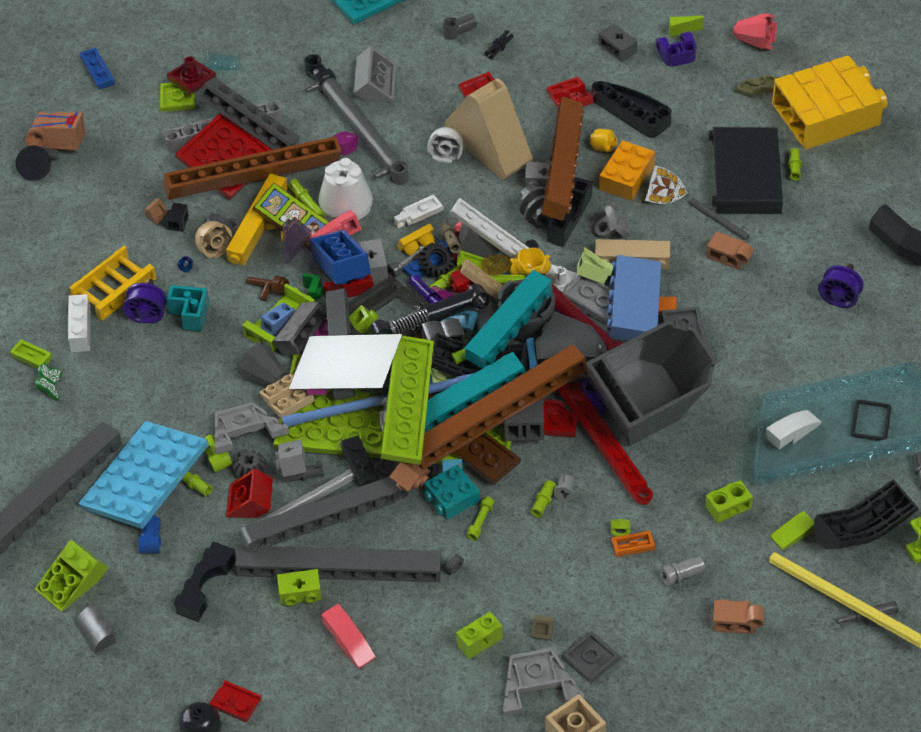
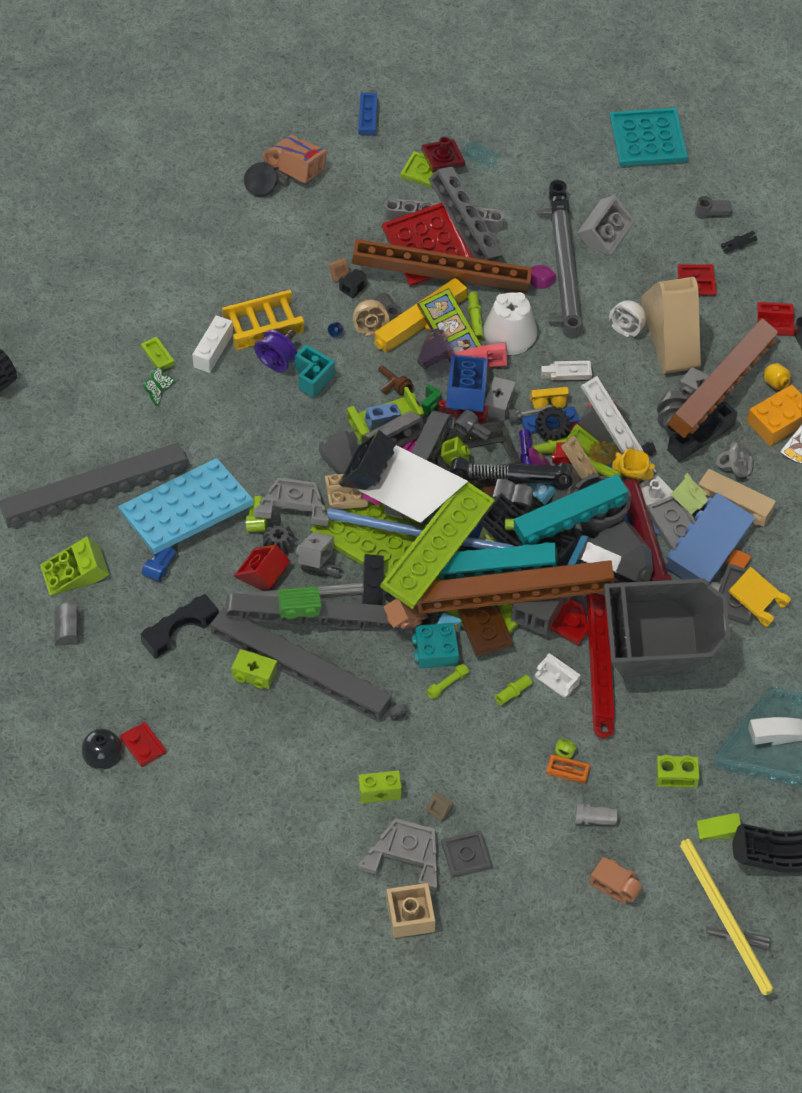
camera: 25 degrees right, 5 degrees up
(195, 482) = (224, 532): lime pin -> none
(296, 360) = (368, 462): none -> black slope
(311, 506) = (299, 602): none -> bright green brick
(347, 636) = (268, 733): coral slope -> none
(363, 290) = (469, 424): none -> dark grey axle
(449, 236) = (579, 405): dark tan pin -> none
(564, 488) = (538, 688): light grey bush -> none
(577, 466) = (557, 676): none -> white hinge
(706, 324) = (757, 594): none -> yellow flag

